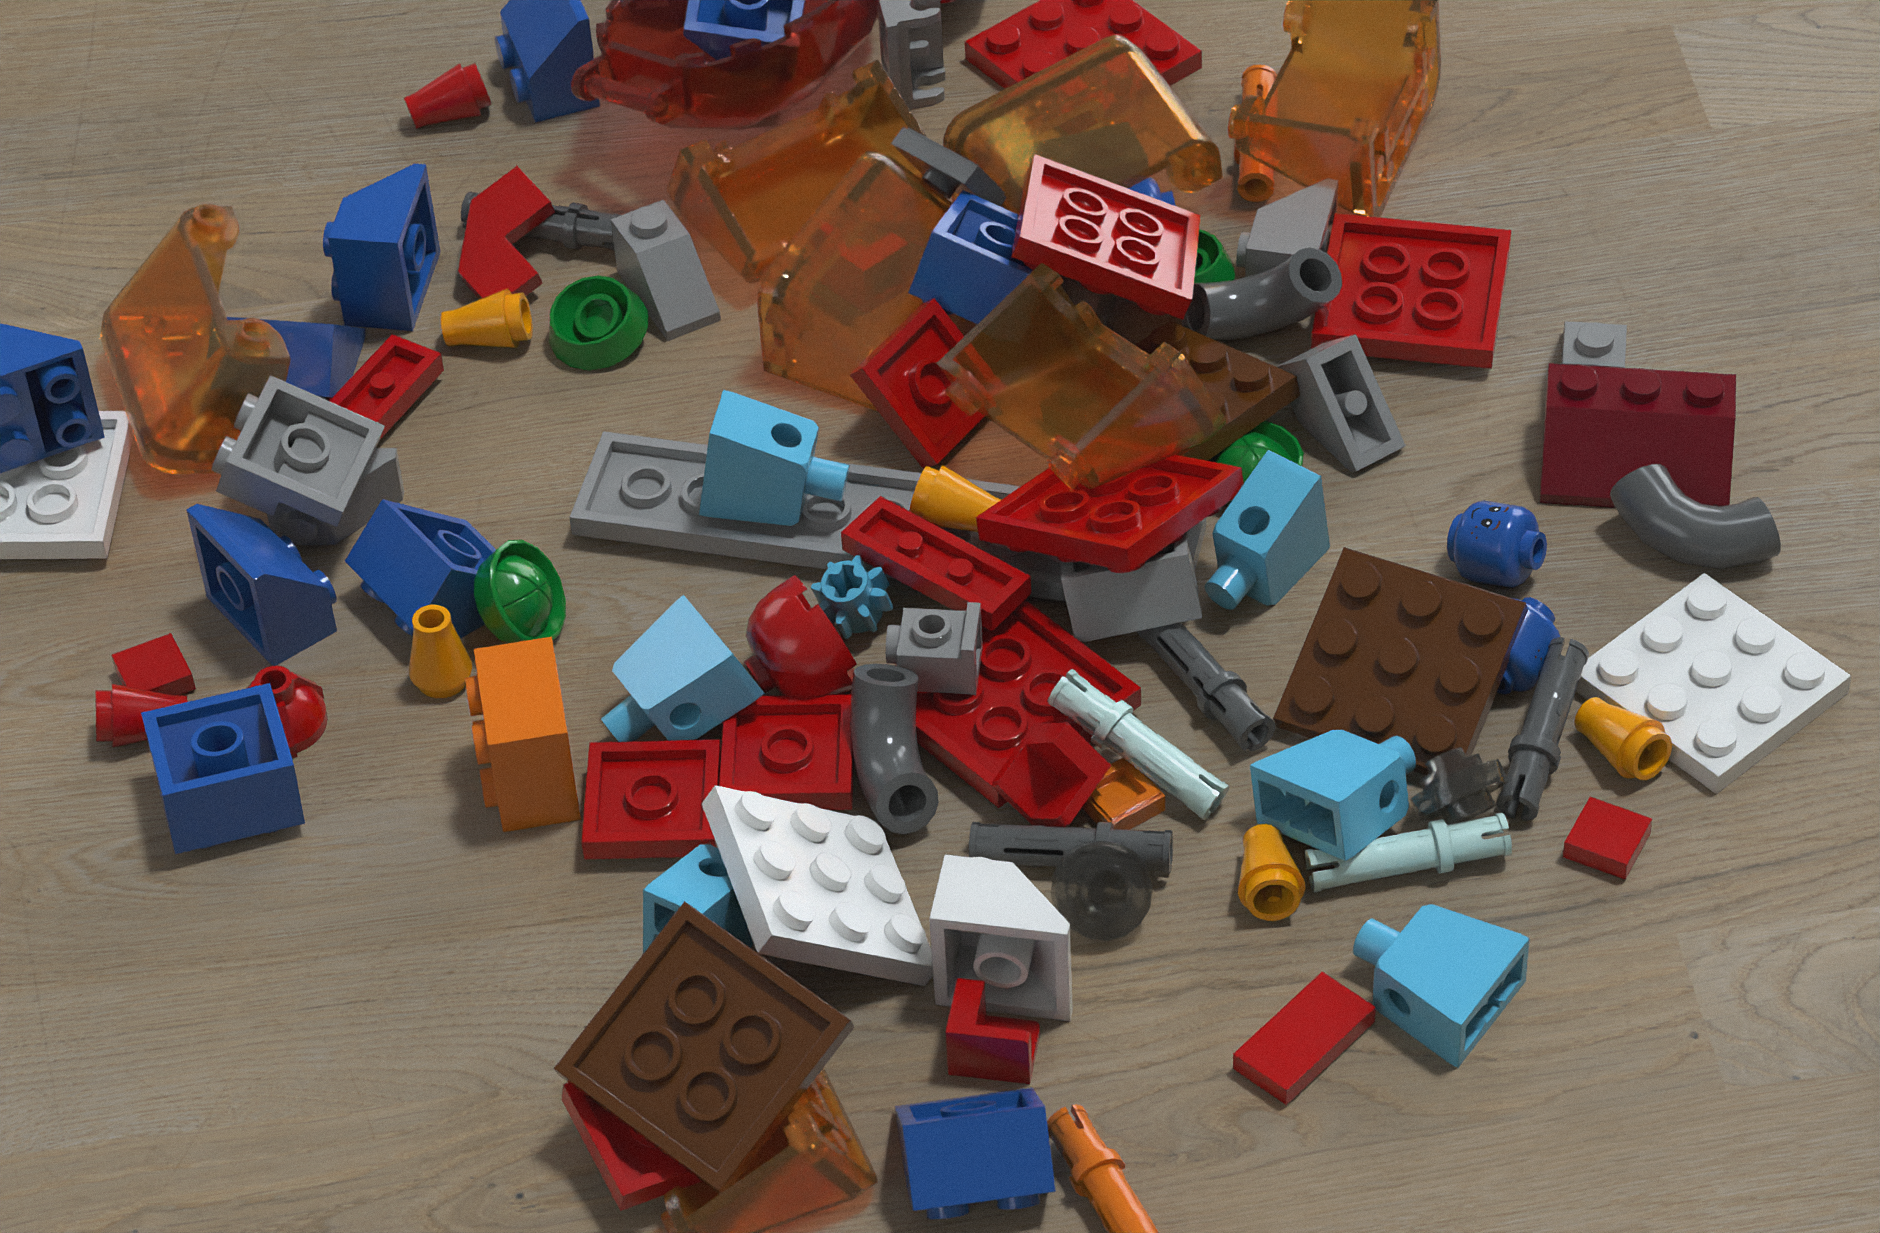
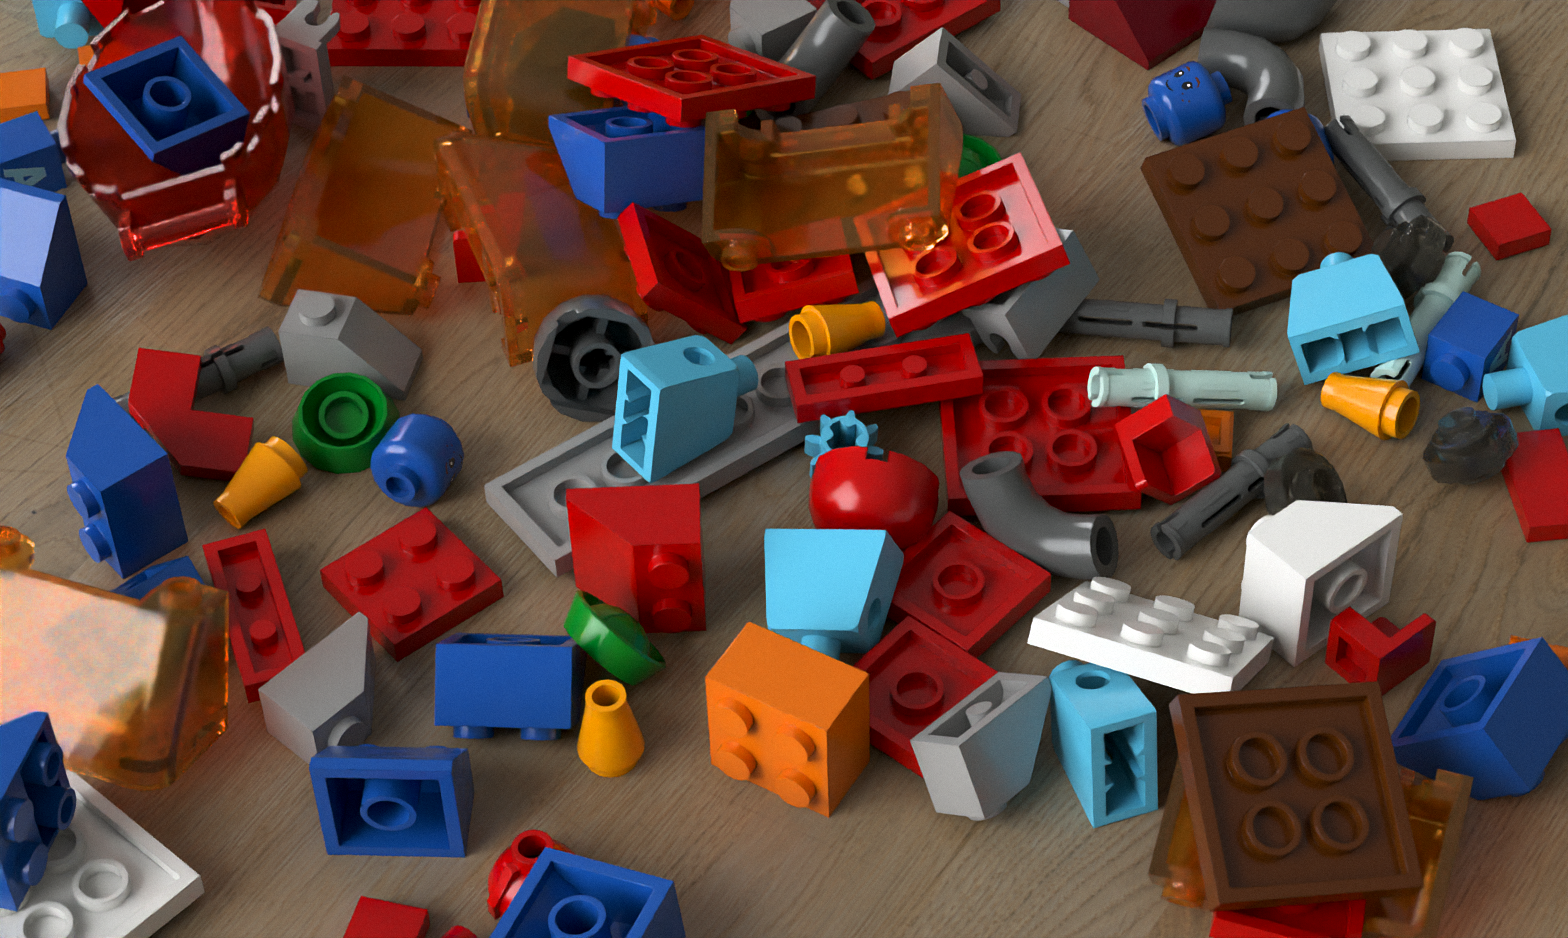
camera: 50 degrees left, 0 degrees up
(296, 453) = (310, 667): light grey plate -> none
(486, 465) = (412, 583): none -> red plate
(593, 382) = (419, 457): none -> blue head
(612, 558) = (642, 552): none -> red slope
(616, 856) = (984, 746): none -> light grey slope
(794, 378) = (581, 353): none -> dark grey cylinder
(939, 648) = (980, 422): light grey brick -> none
(946, 169) = (503, 114): dark grey plate -> none
(982, 449) = (784, 286): none -> red plate
(1269, 534) = (1063, 152): medium azure torso -> none
(1276, 958) = (1470, 446): none -> clear smoke plate
(1399, 882) = (1468, 344): none -> blue brick
(1595, 565) = (1255, 69): none -> dark grey cylinder
(1626, 739) = (1433, 159): light orange cone -> none

